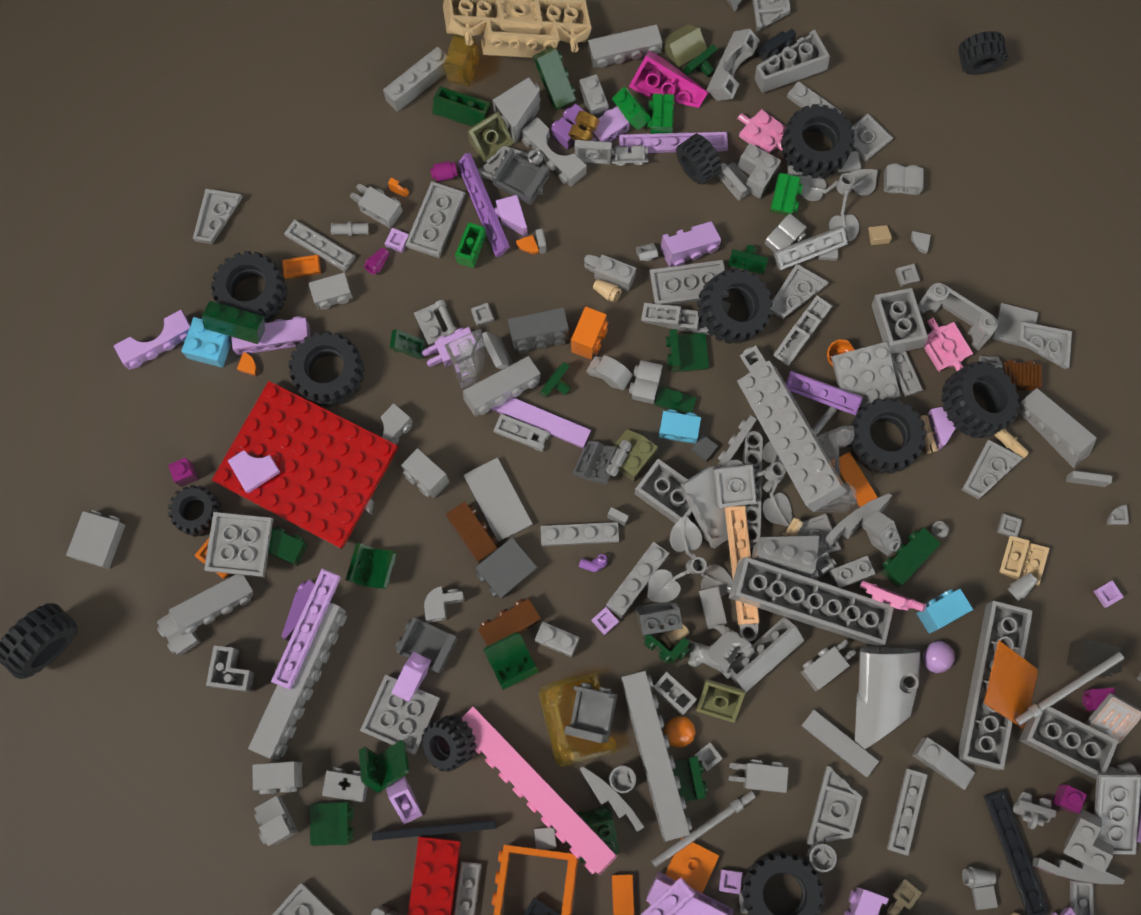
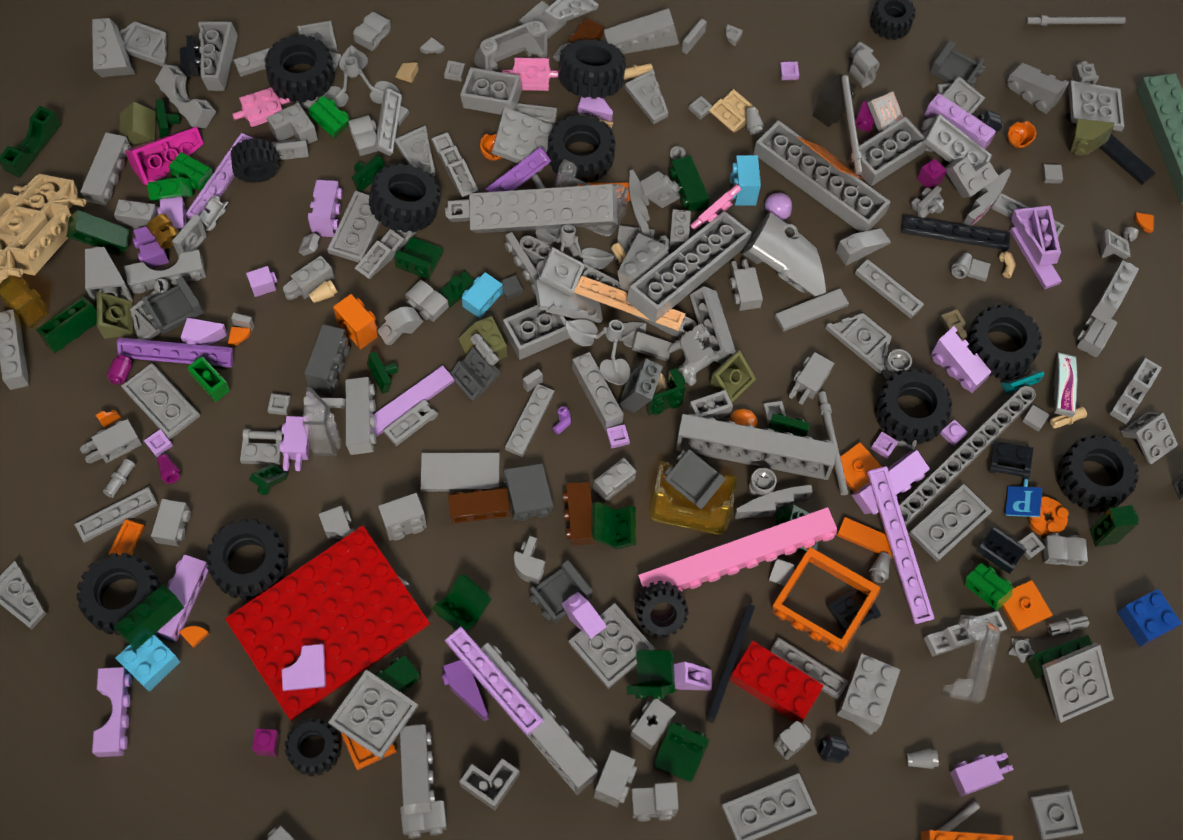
camera: 70 degrees left, 10 degrees down
(588, 233) = (262, 281): none -> lavender brick

